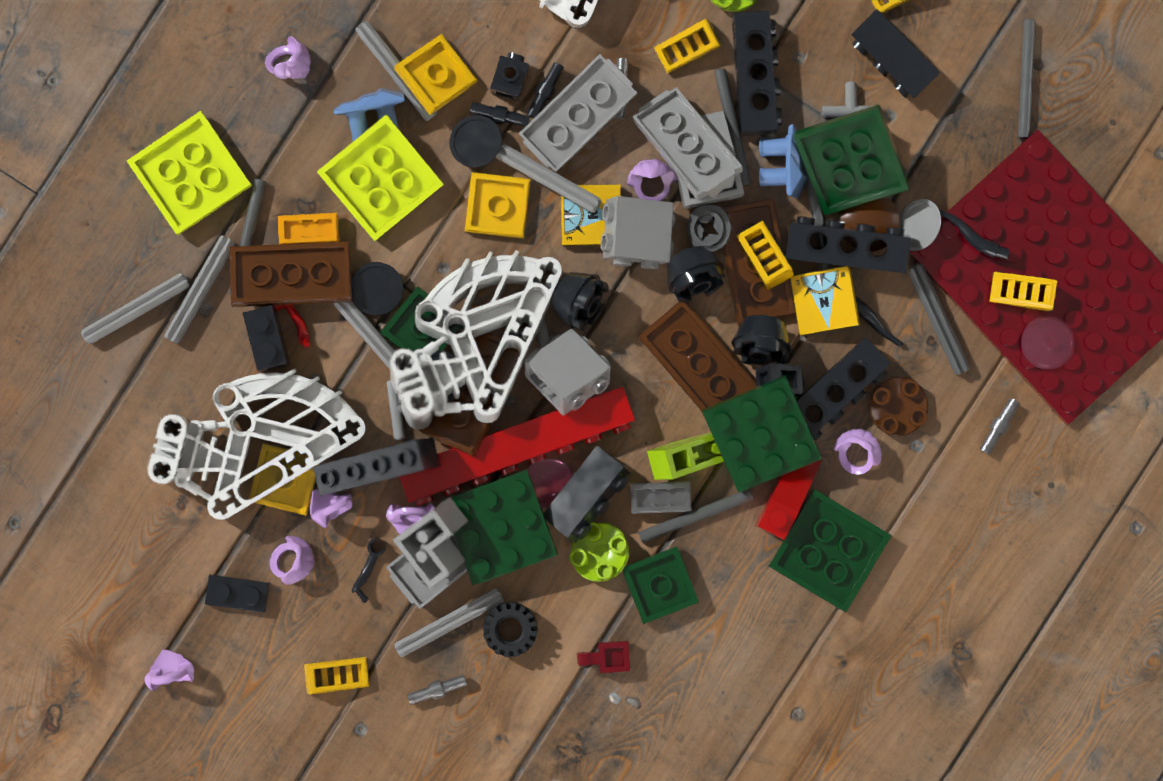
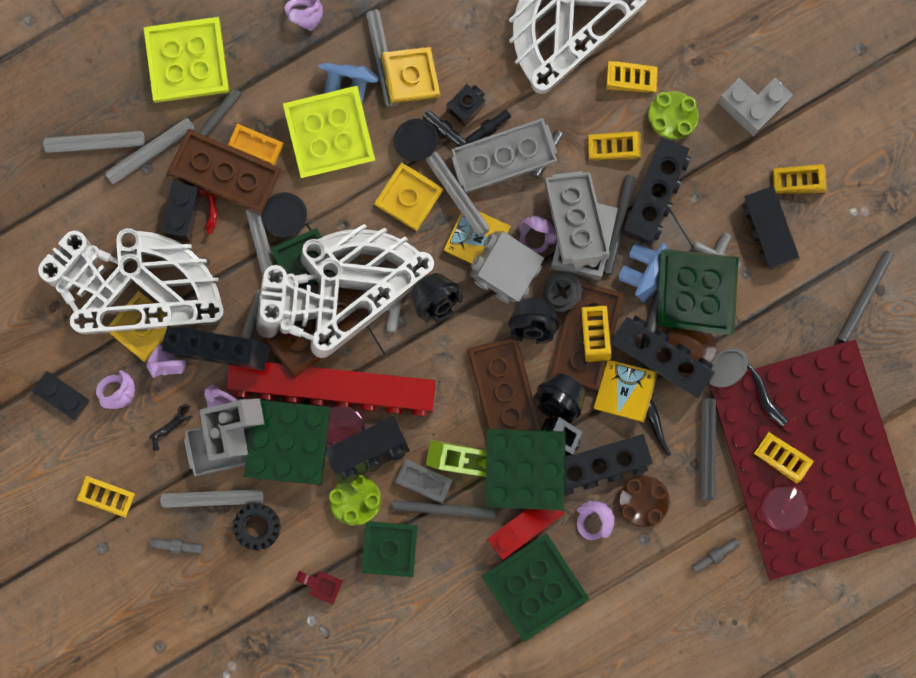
camera: 30 degrees right, 5 degrees down
(567, 371) = (399, 347): light grey brick -> none

